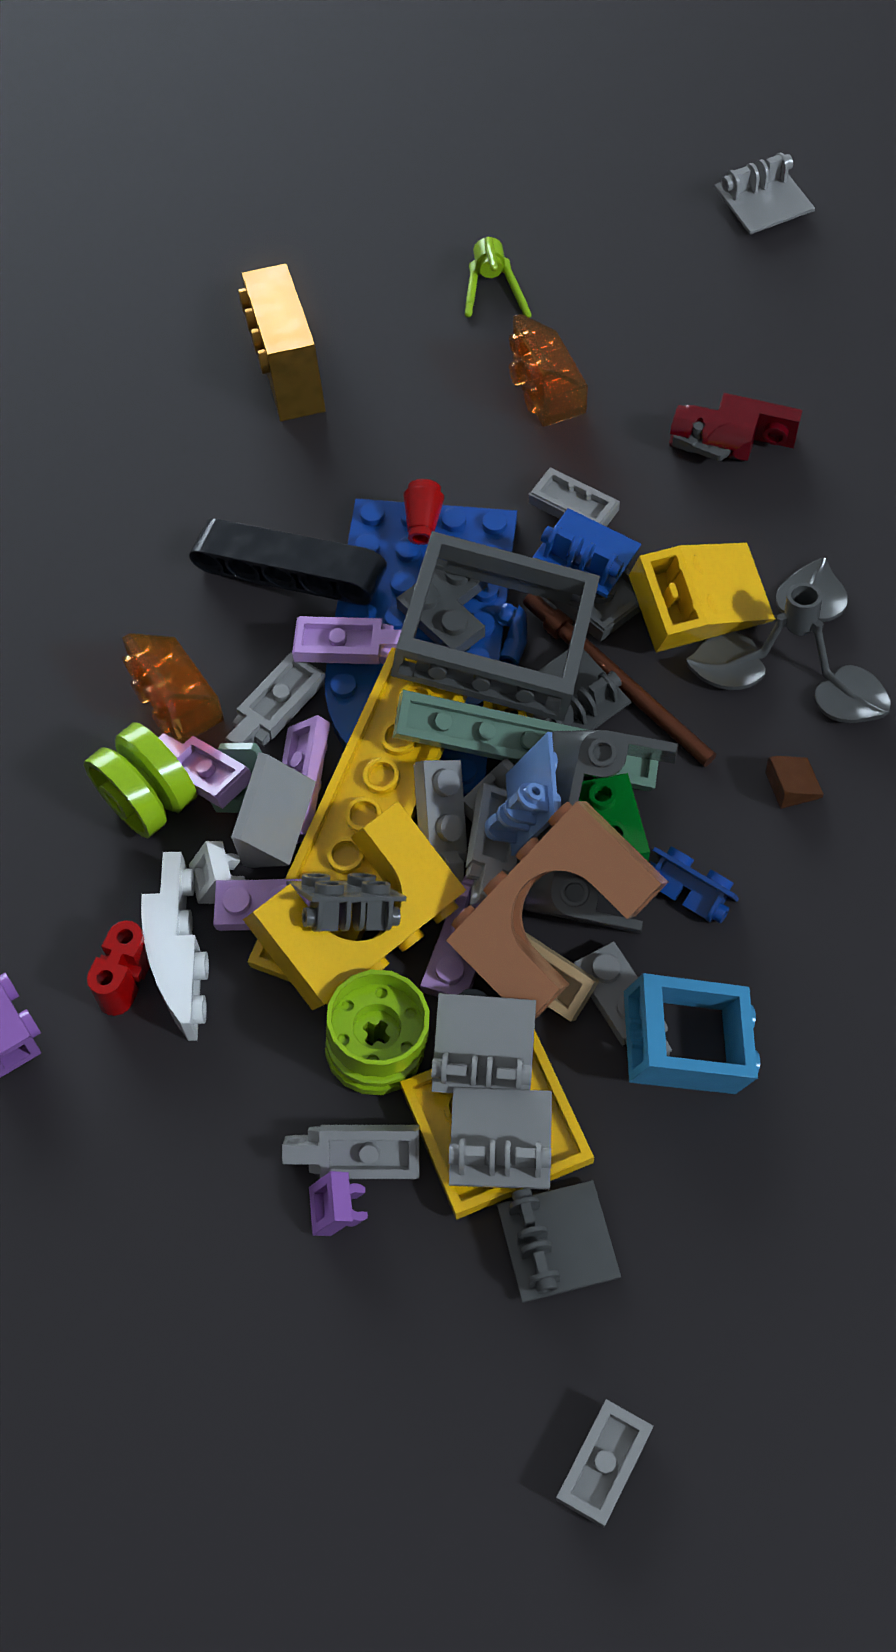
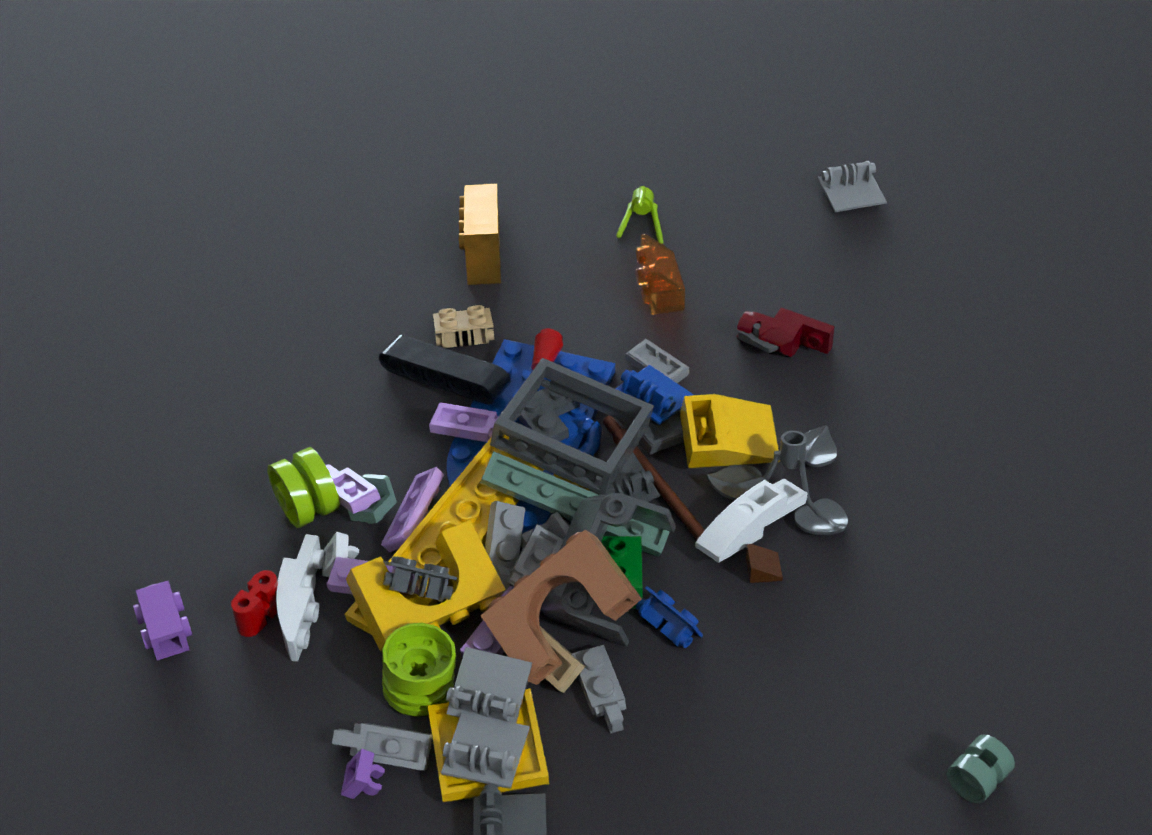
camera: 10 degrees right, 15 degrees down
(172, 685) = (341, 433): clear orange slope -> none
(271, 814) = (384, 520): light grey slope -> none
(275, 701) = (412, 456): light grey hinge -> none
(290, 480) = (450, 321): none -> tan hinge
(530, 797) = (558, 530): medium blue hinge -> none
(647, 1039) = (629, 731): dark azure window -> none
(761, 716) = (747, 516): none -> white slope

